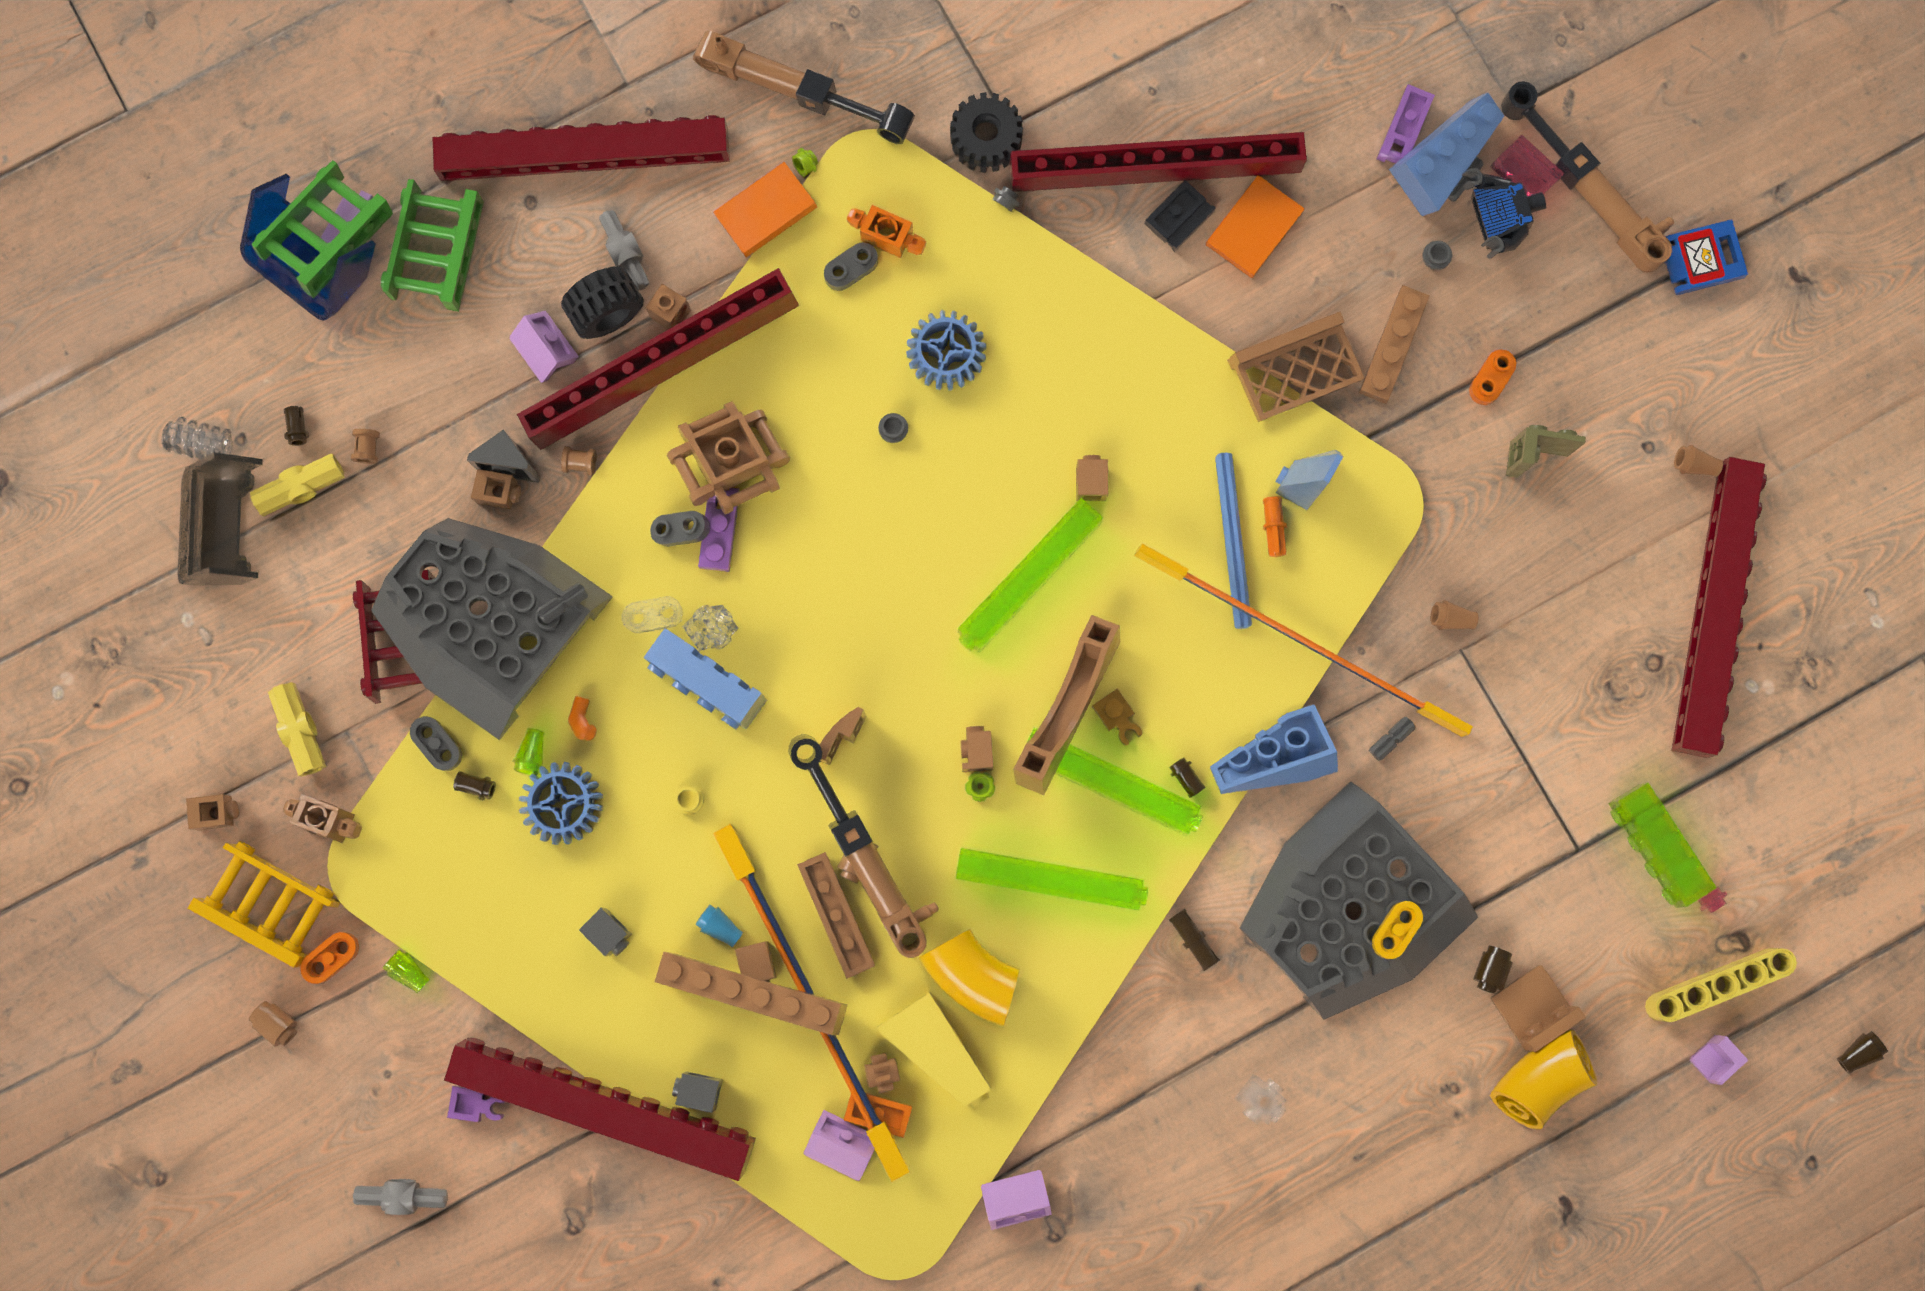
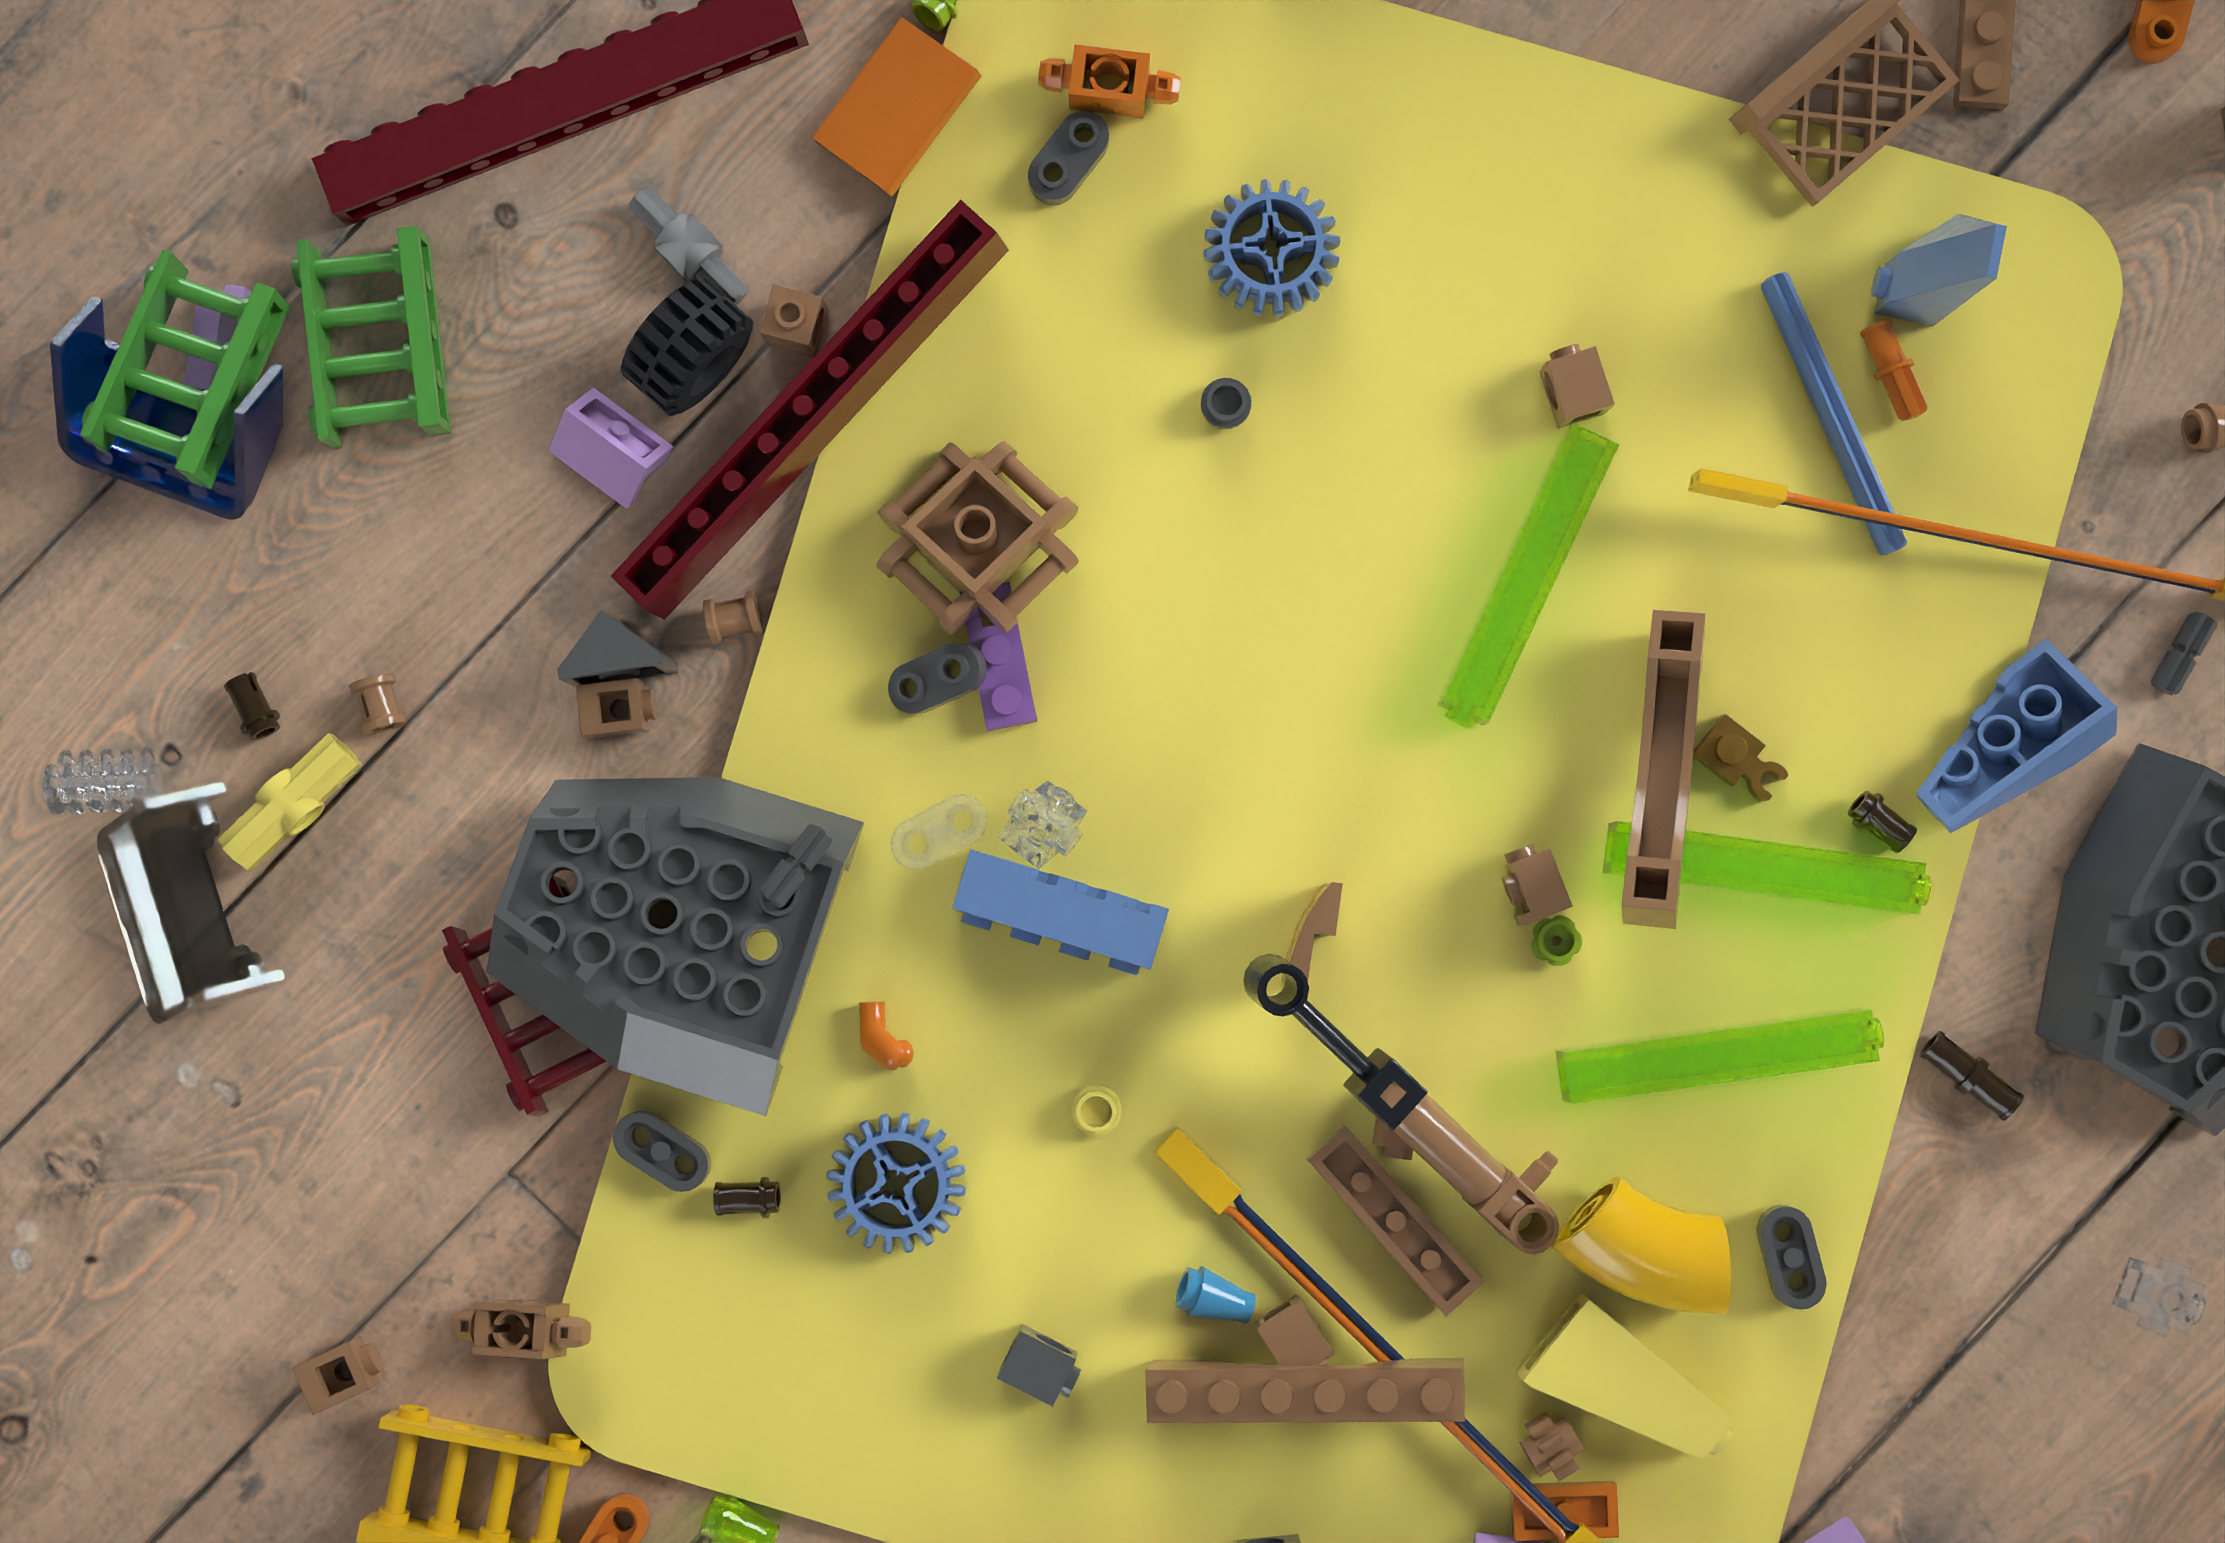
camera: 10 degrees left, 5 degrees up
(296, 729) = (428, 1197): light yellow piece -> none
(530, 753) = (819, 1119): clear neon green cone -> none
(1055, 1008) = (1790, 1255): none -> dark grey plate

